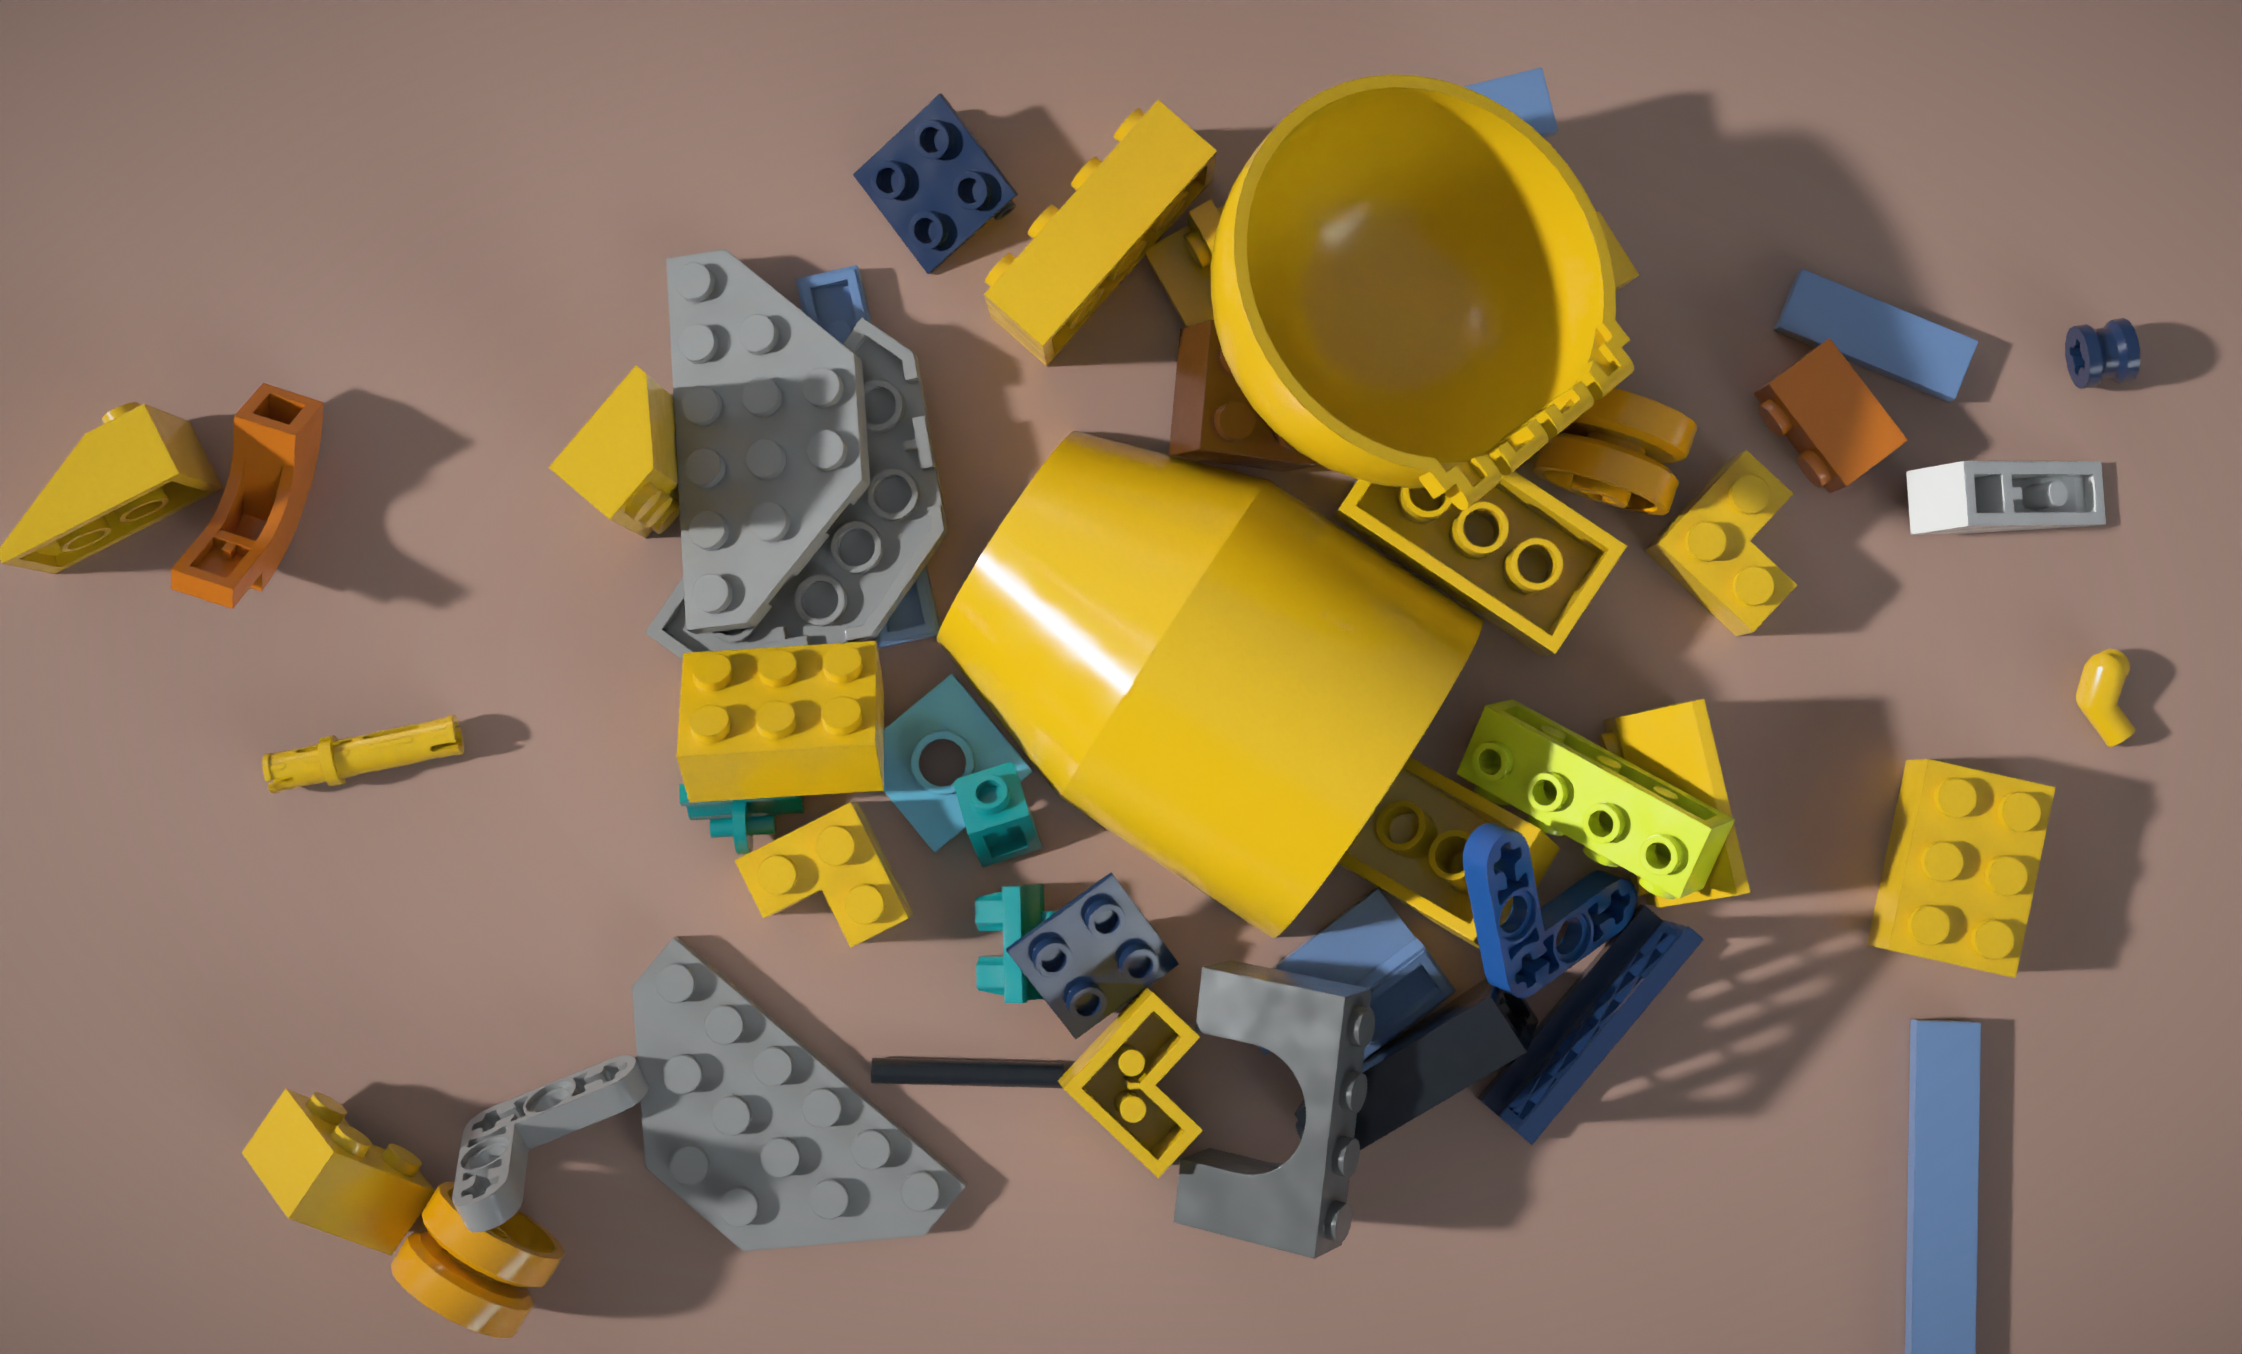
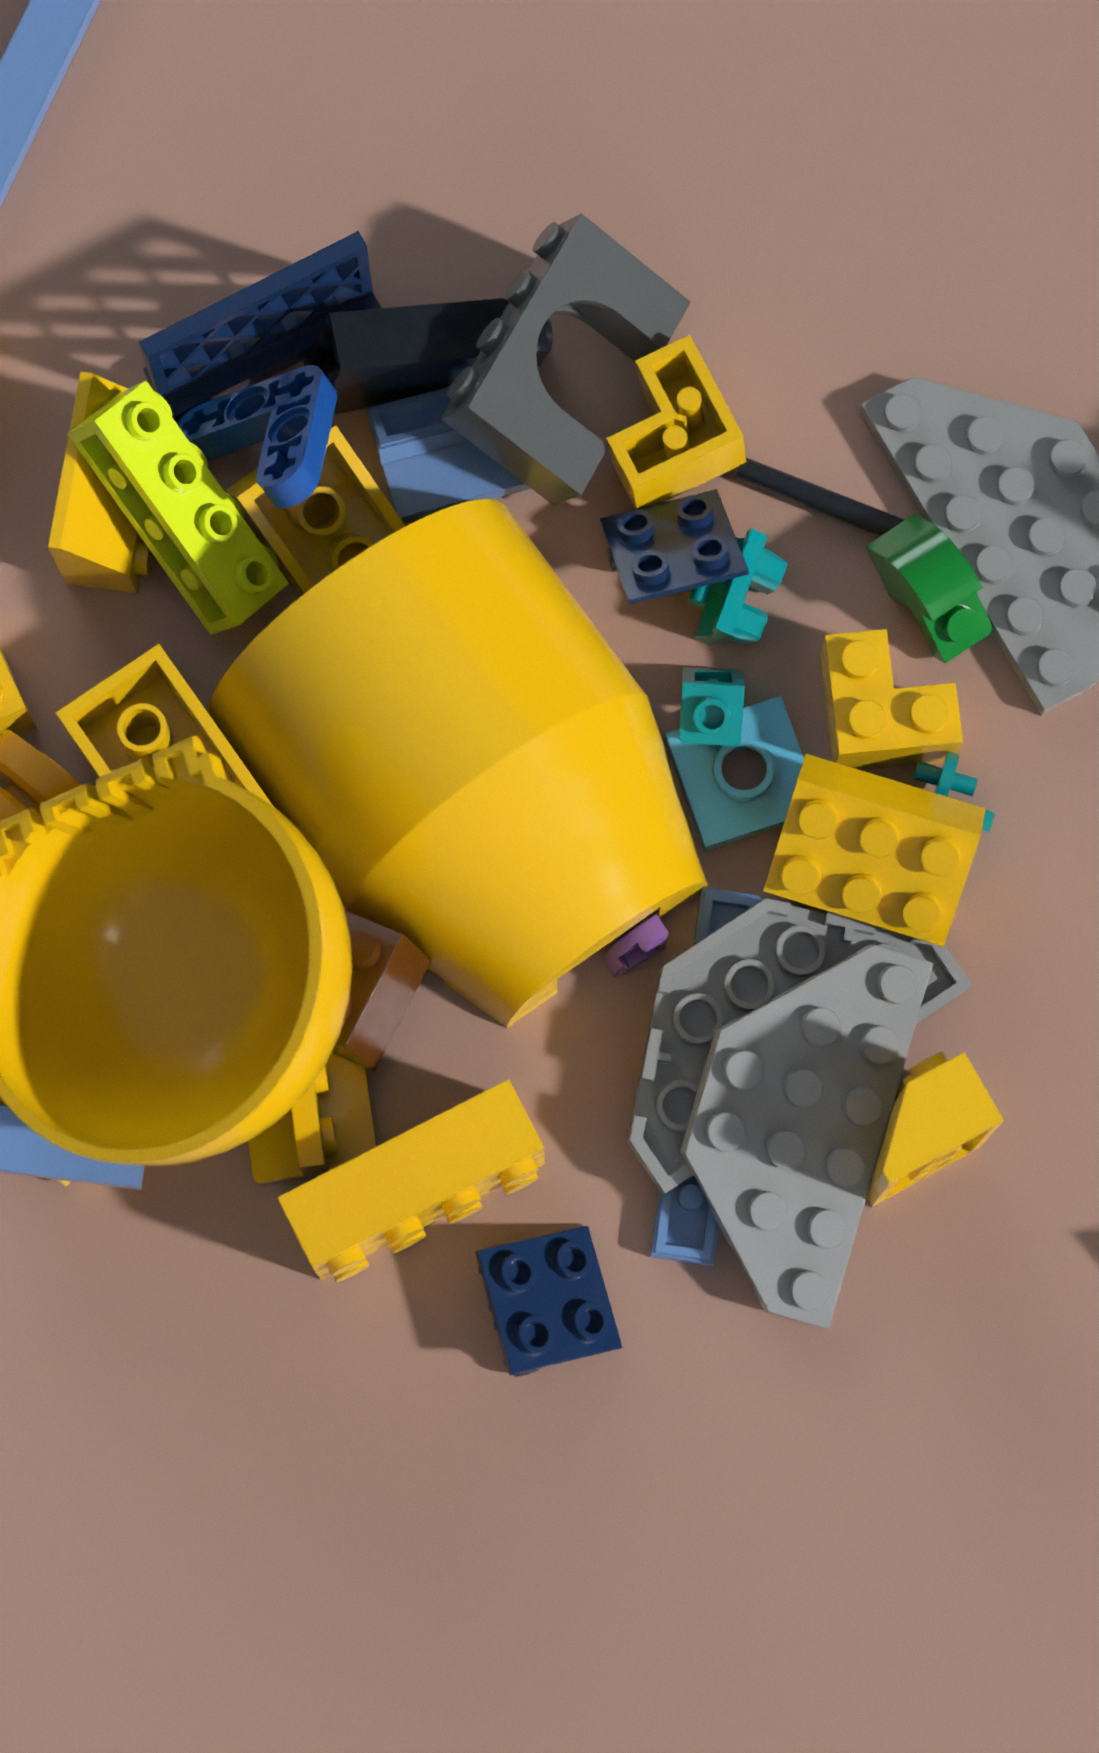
camera: 160 degrees left, 10 degrees down
(827, 1020) = (935, 581): none -> green brick
(971, 551) = (637, 946): none -> medium lavender tile

